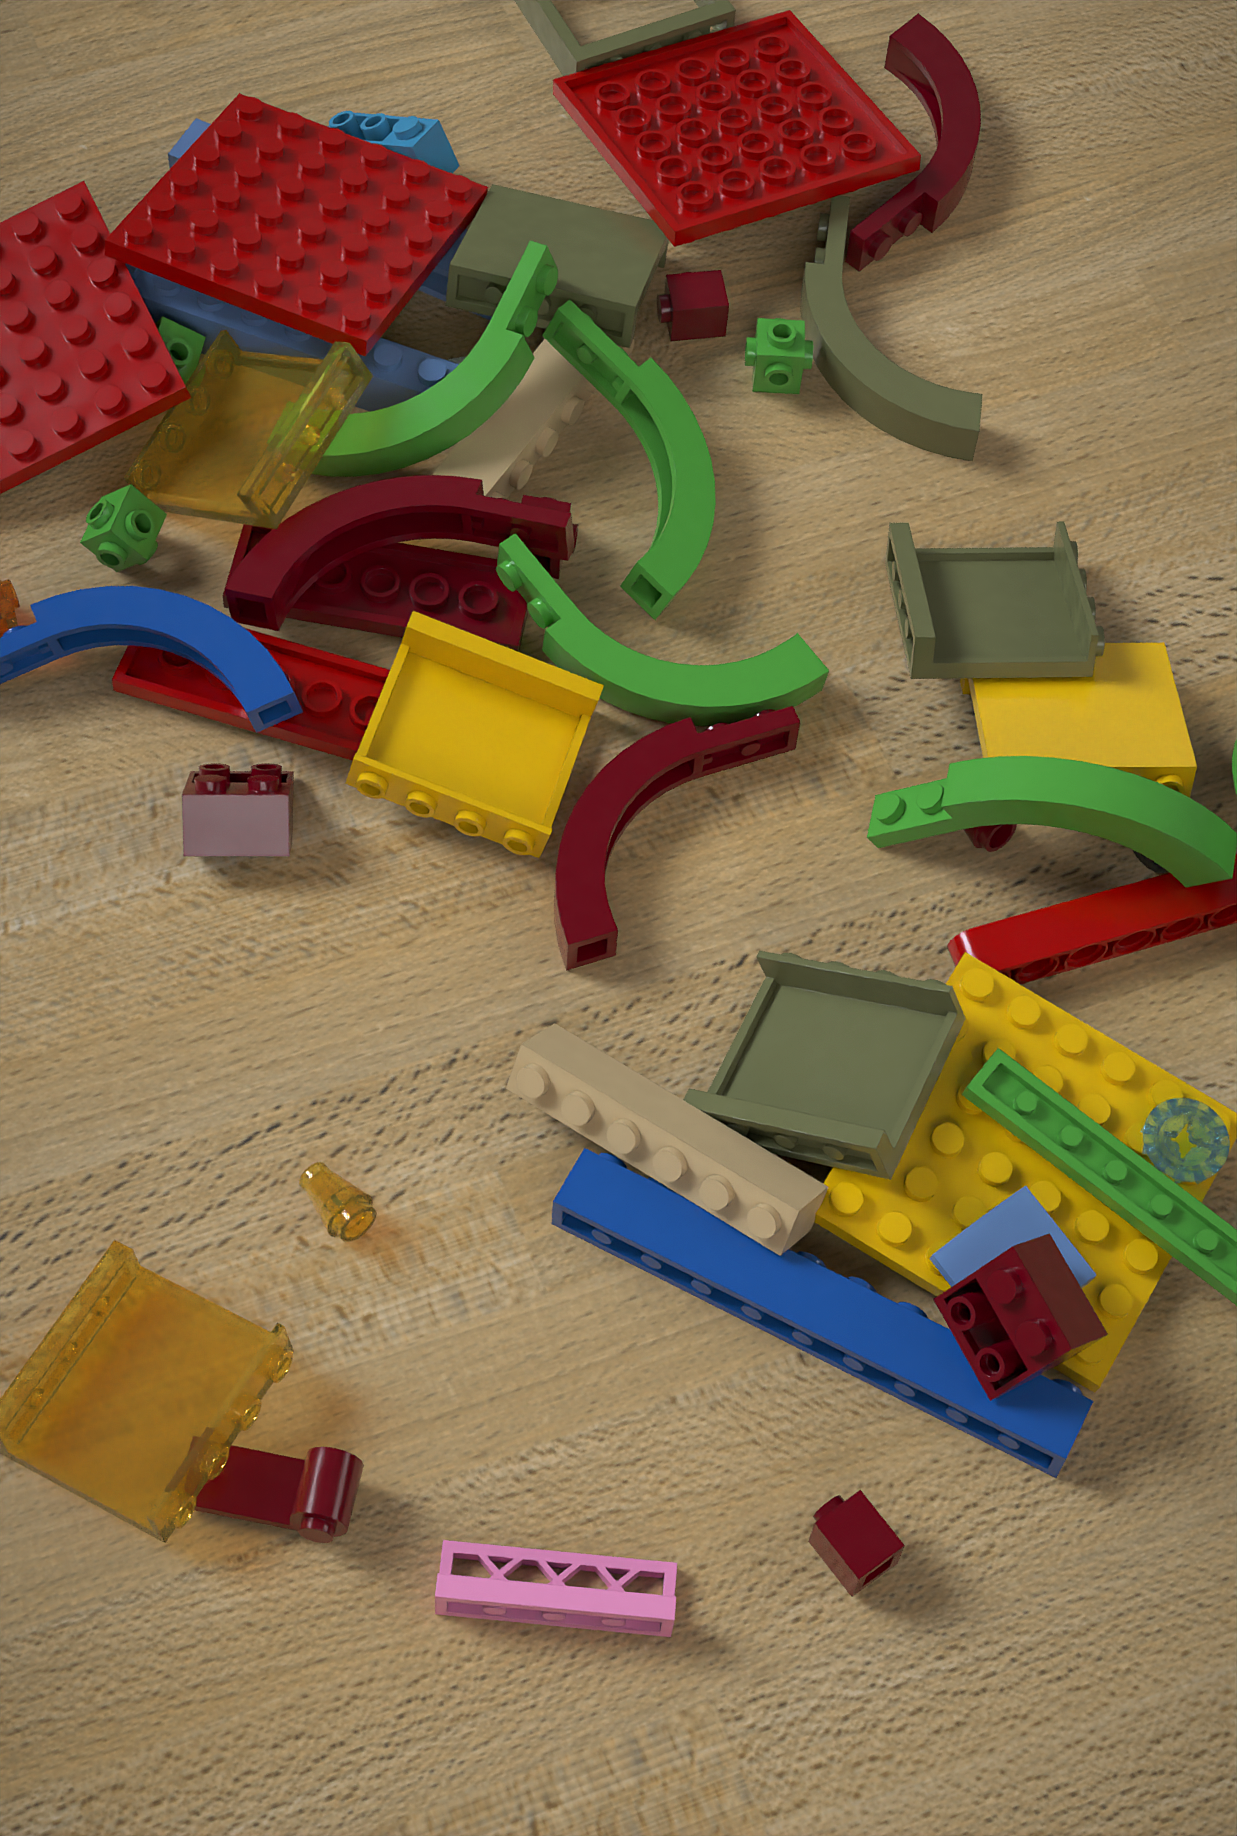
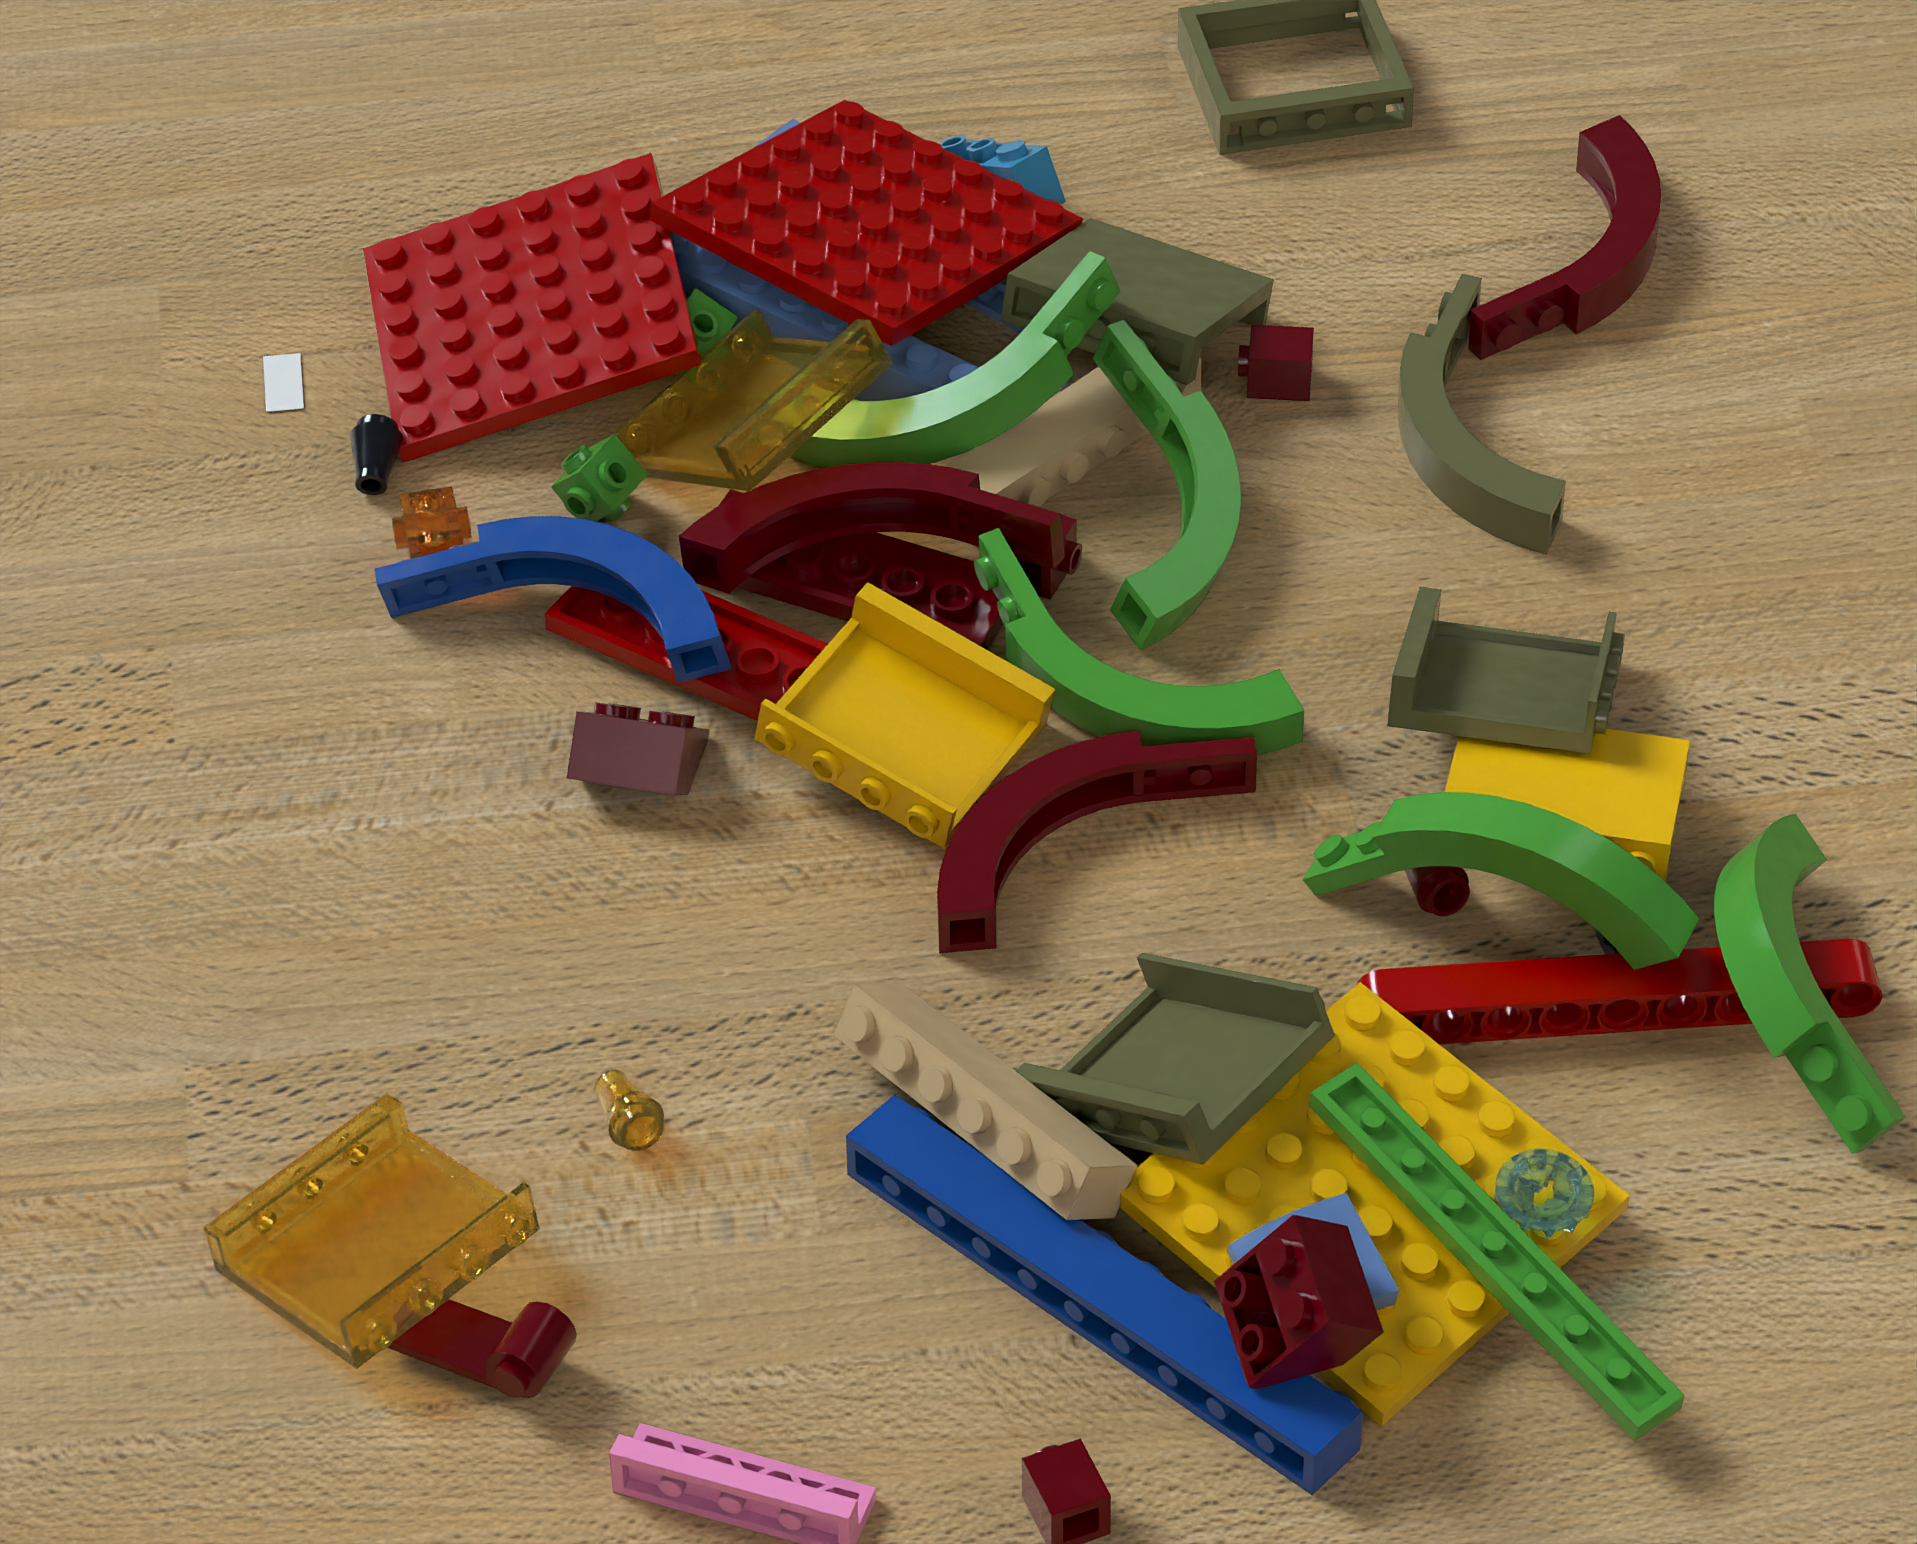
camera: 20 degrees right, 15 degrees down
(734, 127) = (1376, 197): red plate -> none
(778, 355) = (1357, 409): bright green brick -> none

